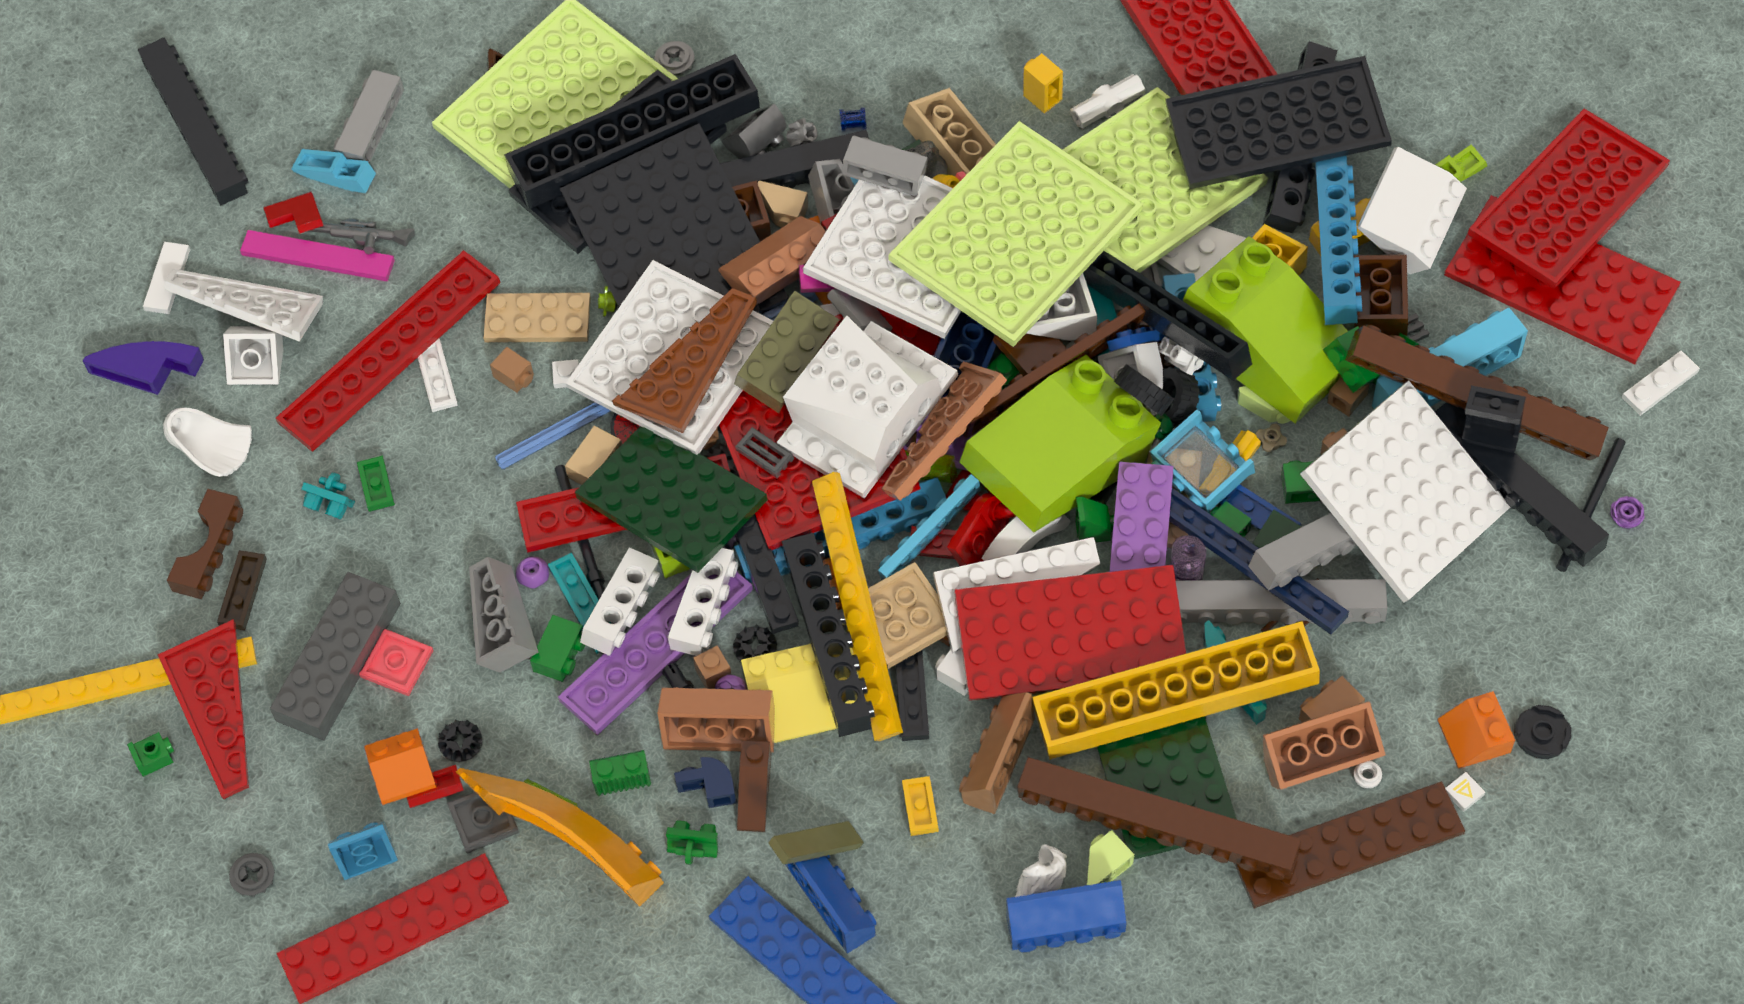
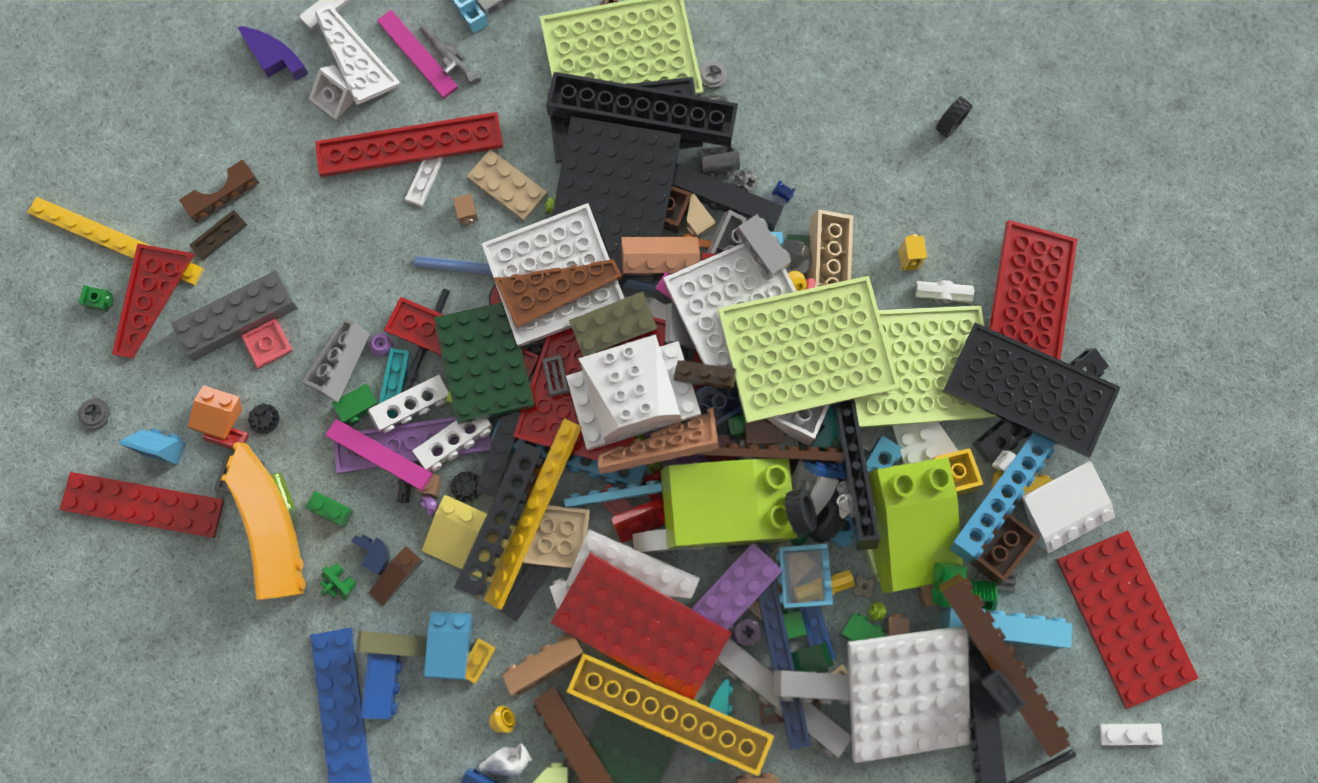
camera: 30 degrees right, 15 degrees up
(208, 441) = (268, 128): white hair -> none
(299, 208) = (427, 17): red tile -> none
(315, 496) = (308, 209): teal hips -> none
(375, 483) = (338, 223): green plate -> none
(562, 371) = (494, 231): white plate -> none
(591, 454) = (467, 298): tan brick -> none
(631, 672) = (379, 455): none -> dark pink tile
(715, 718) = (404, 519): nougat slope -> none
(875, 805) = (448, 645): none -> dark azure slope
(930, 326) = (705, 374): none -> dark brown plate
(999, 842) = (502, 720): none -> yellow cone
(1093, 520) = (714, 562): green slope -> none
(1305, 449) = (877, 611): none -> lime plate
(1308, 210) = (1003, 460): none -> white tile
(1464, 163) = (1125, 495): lime slope -> none
(1568, 198) = (1174, 571): red plate -> none

